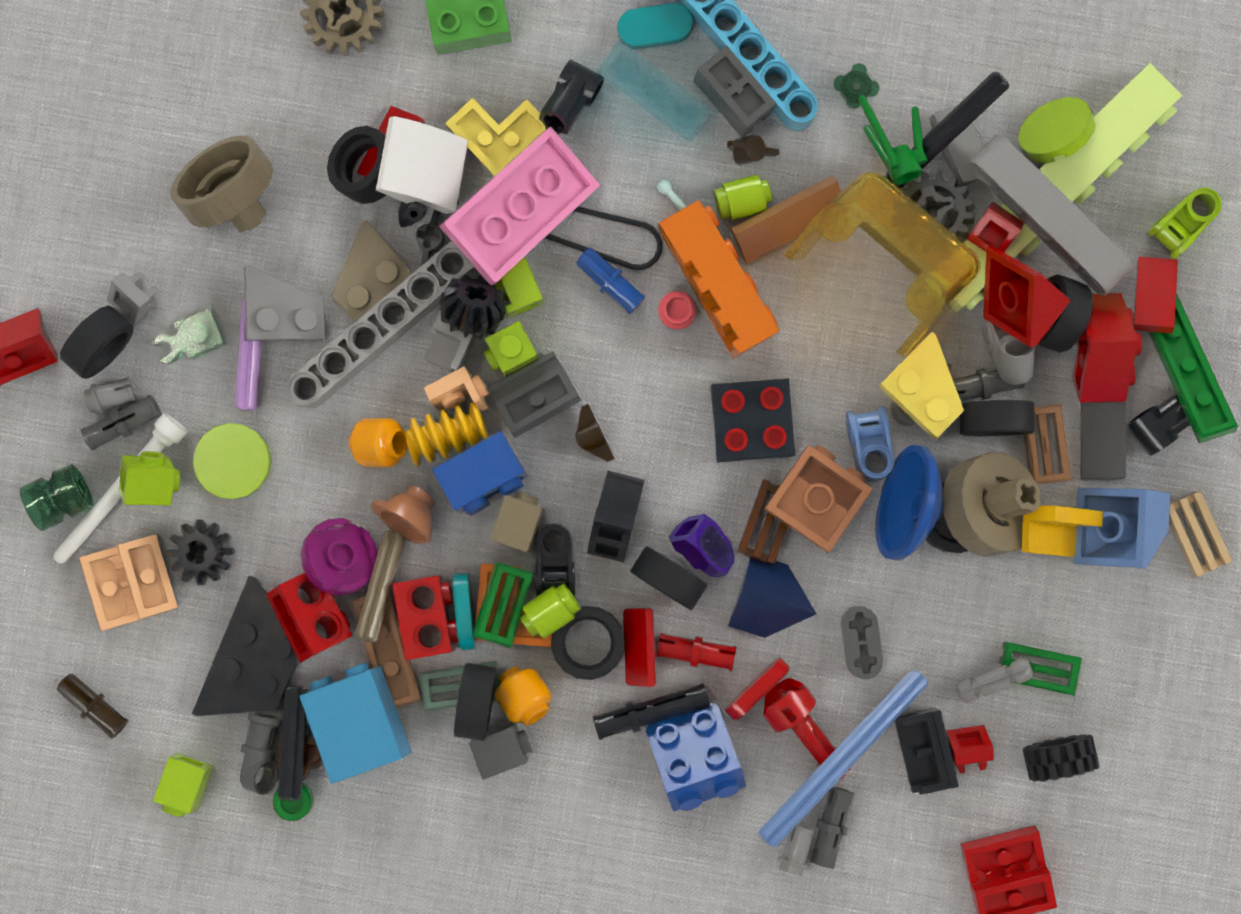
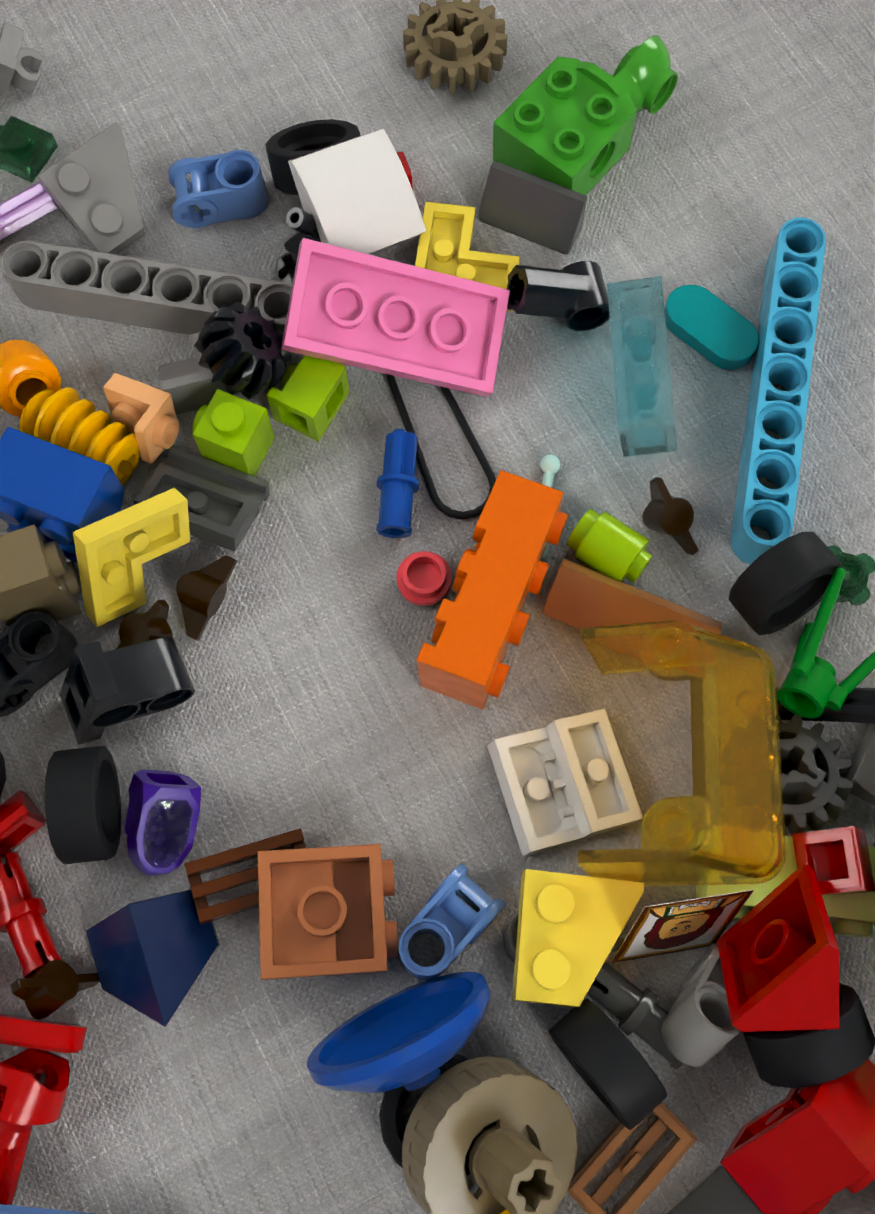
camera: 50 degrees right, 15 degrees down
(224, 184) = (184, 52): dark tan piece -> none
(331, 241) = (221, 186): none -> medium blue piece
(368, 273) = (214, 243): dark tan wing -> none
(497, 64) = (532, 208): none -> dark grey slope
(543, 464) = (117, 546): none -> light yellow plate
(589, 483) = (145, 626): none -> dark brown piece
(734, 91) = (718, 446): dark grey hinge -> none
(748, 659) = (51, 987): none -> dark brown piece
(752, 420) = (362, 759): black brick -> none
(840, 126) = (784, 583): none -> black tyre
(845, 326) = (564, 782): none -> white slope
(852, 643) = (173, 1112): dark grey beam -> none
(965, 331) = (680, 926): none -> sticker

